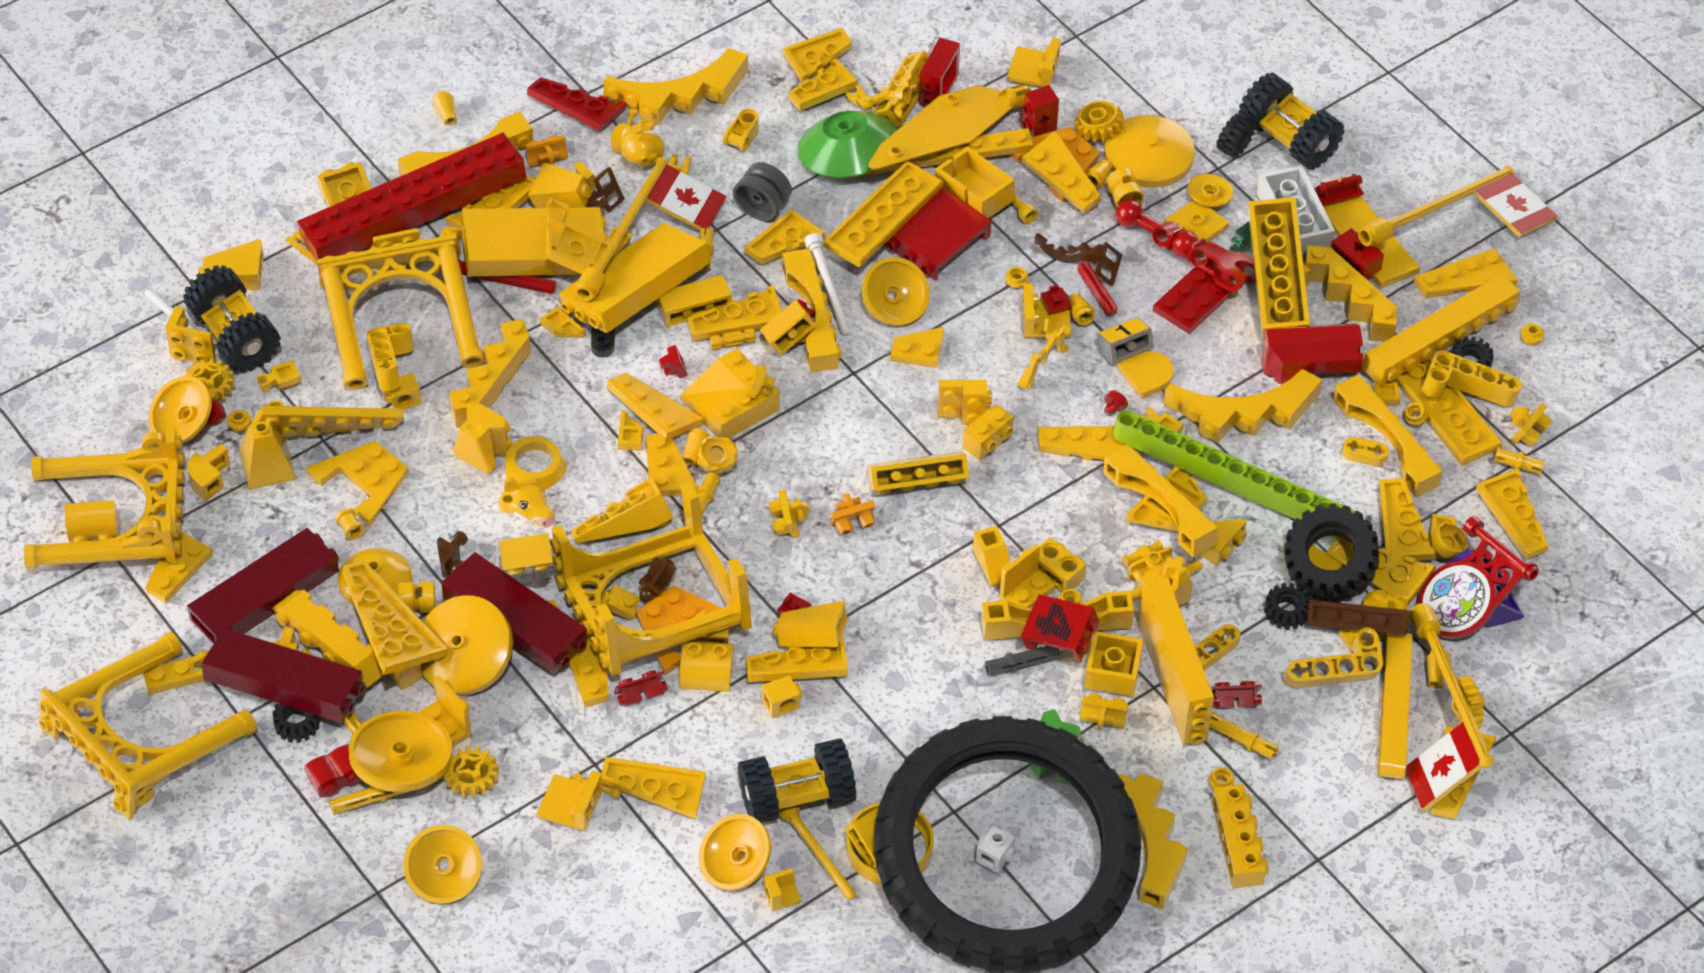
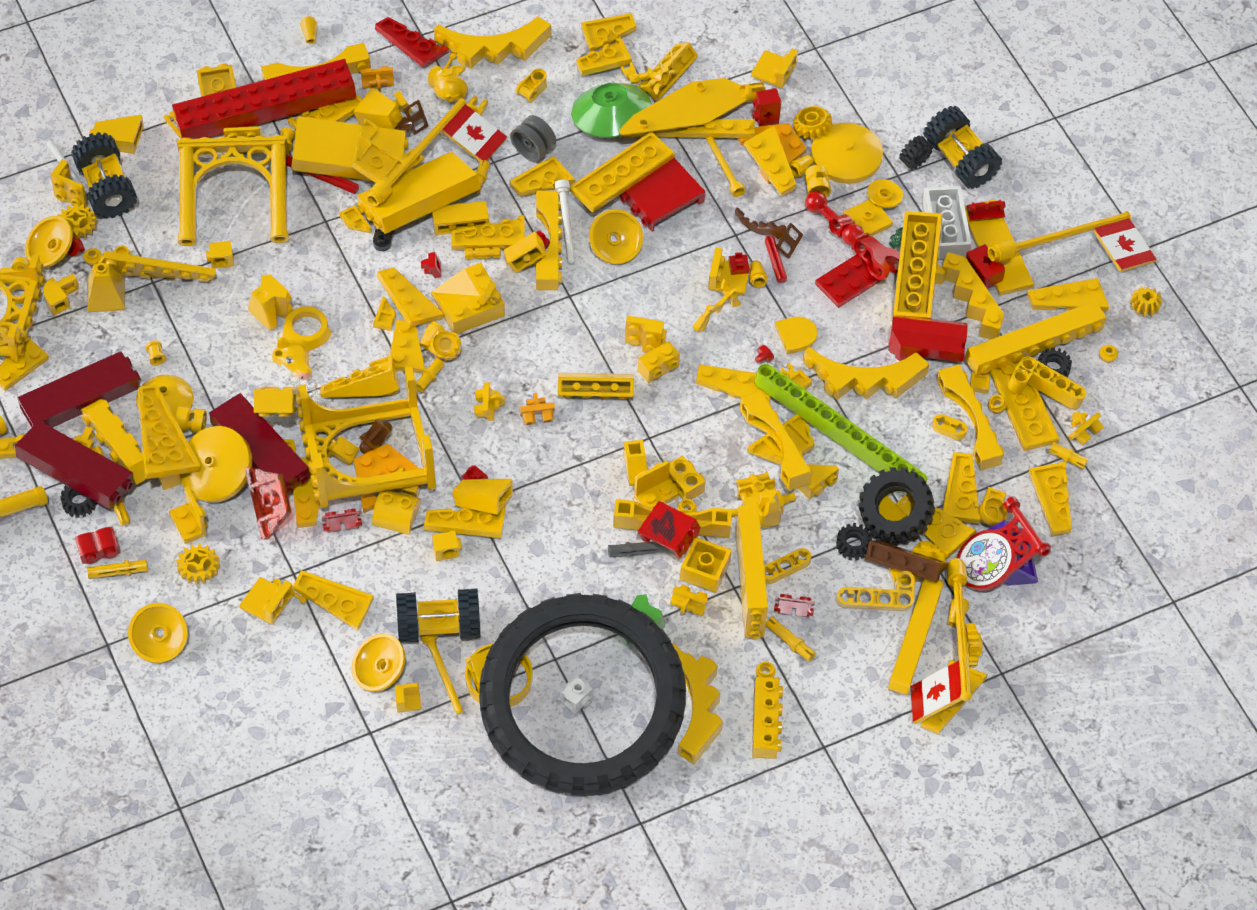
camera: 10 degrees right, 5 degrees up
(281, 375) = (133, 226): yellow plate -> none
(370, 469) = (182, 312): yellow wing -> none
(383, 346) = (213, 214): yellow beam -> none
(400, 751) = (147, 539): yellow dish -> none
(450, 553) = (223, 388): reddish brown piece -> none
(500, 367) = (286, 256): yellow brick -> none
(544, 676) = (268, 499): none -> clear red wing
(918, 348) = (624, 284): yellow wing -> none
(939, 71) = (696, 61): red window -> none
(977, 182) = (702, 159): yellow piece -> none
(1016, 277) = (714, 239): yellow plate -> none
(1125, 340) = (784, 305): light grey brick -> none
(1560, 266) = (1146, 301): none -> yellow gear

